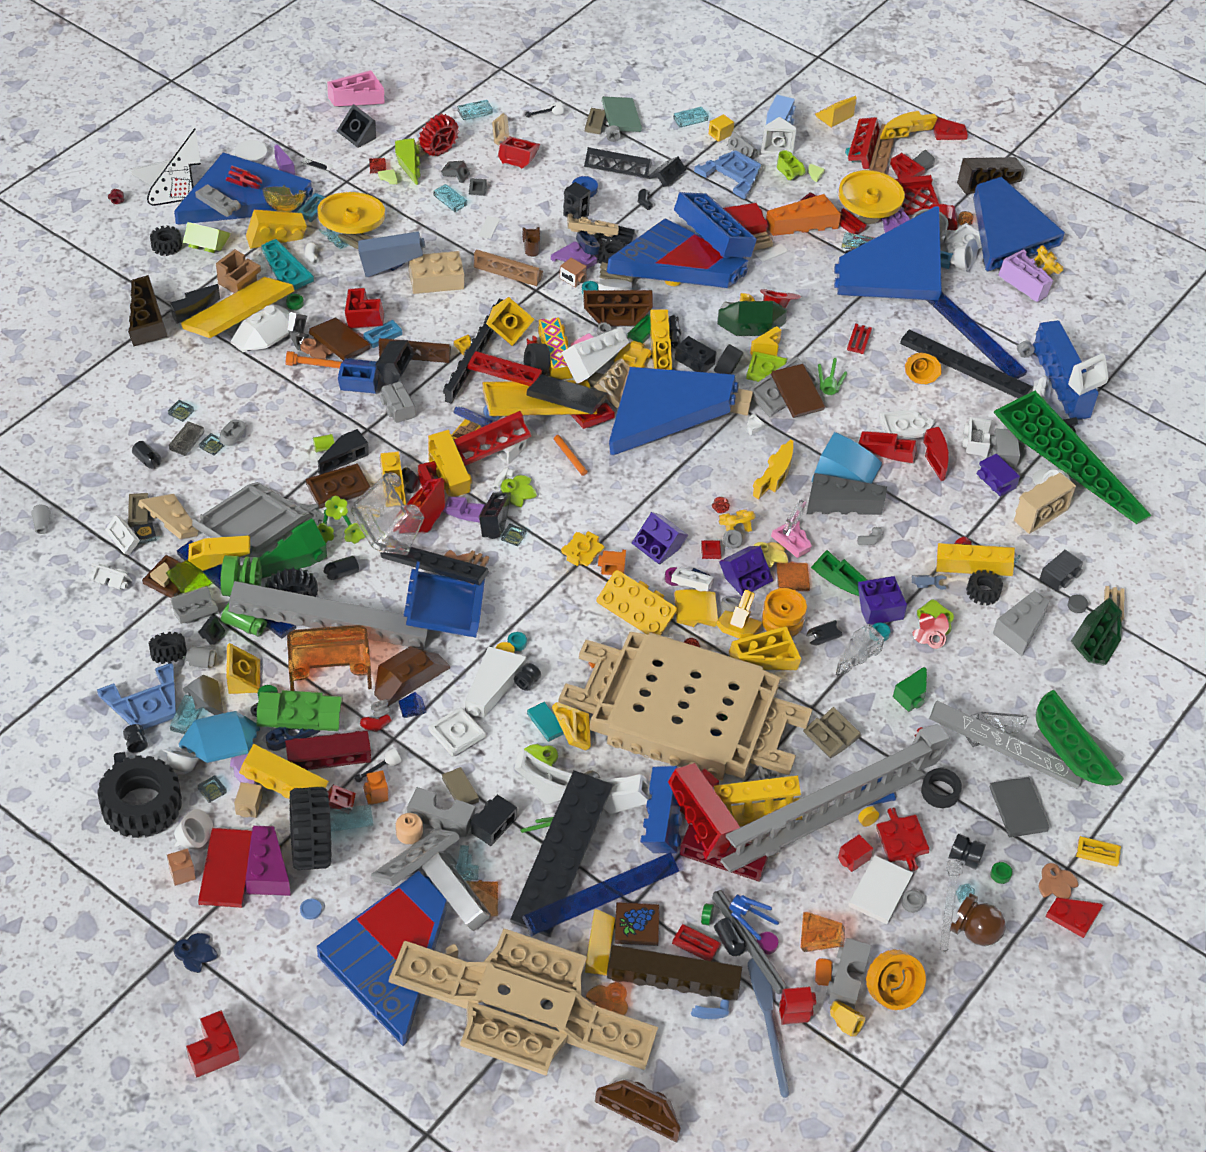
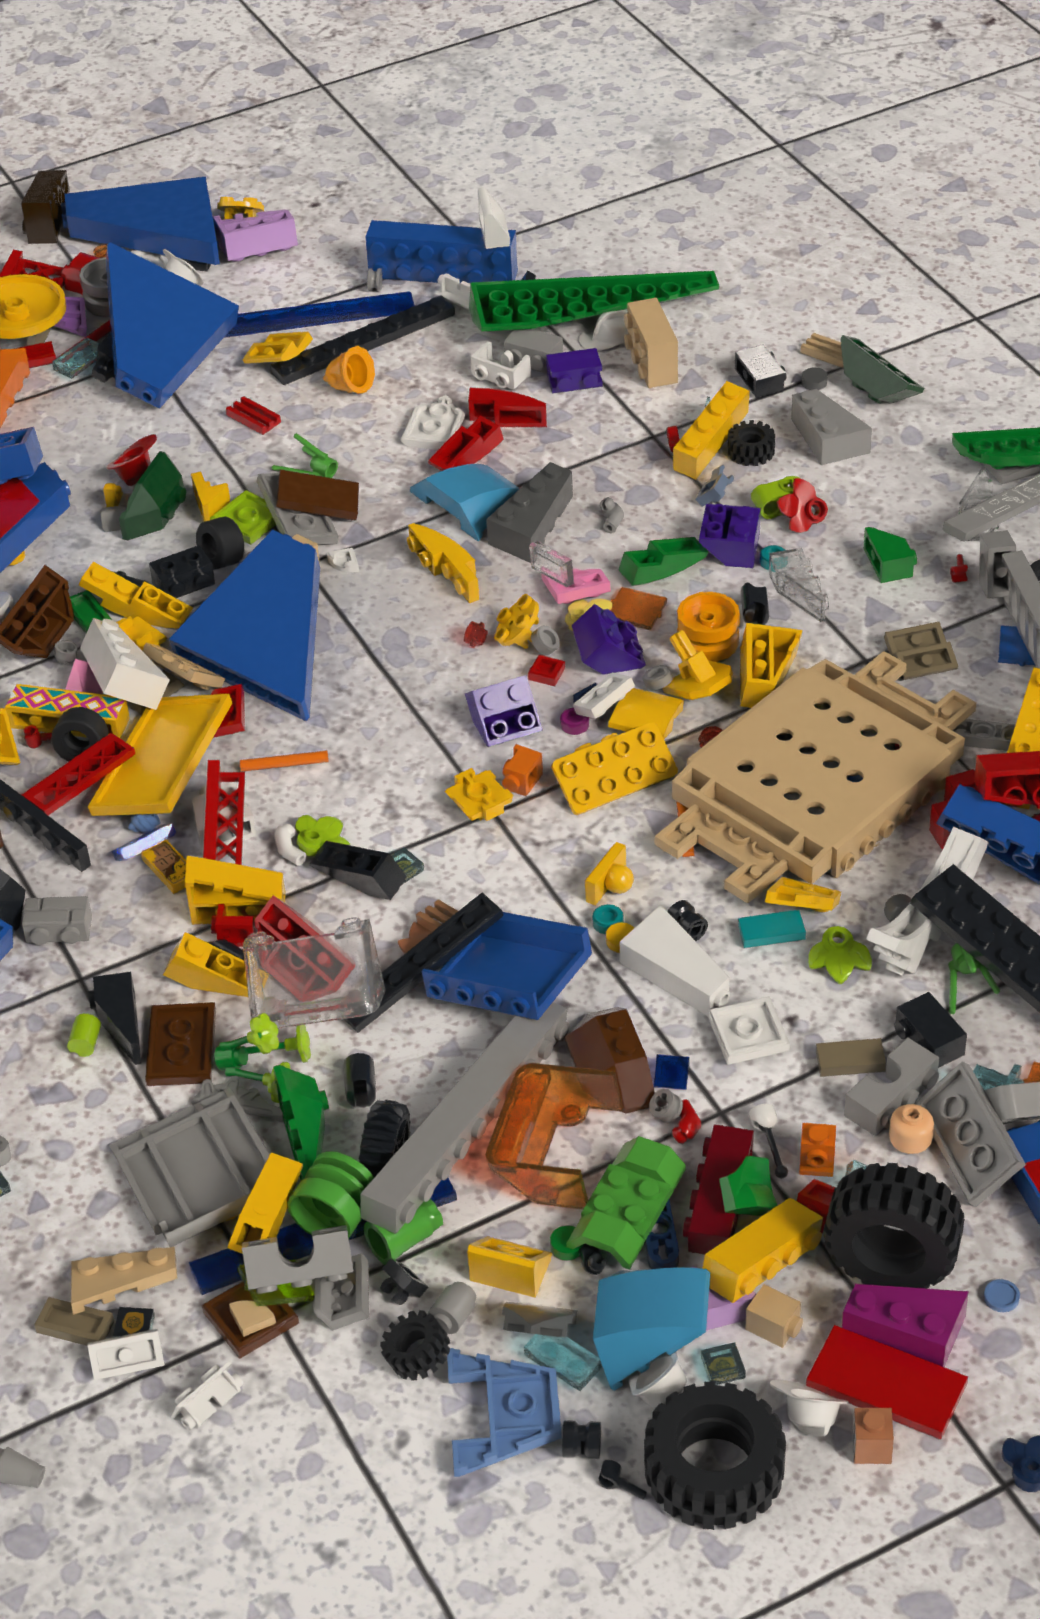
camera: 60 degrees left, 5 degrees down
(196, 583) = (268, 1268): none -> light grey arch
(323, 759) = (749, 1188): none -> green slope
(461, 509) = (326, 903): medium lavender slope -> none
(548, 629) = (609, 875): none -> yellow tile
(566, 394) = (182, 717): black tile -> none
(924, 328) = (278, 347): none -> yellow slope

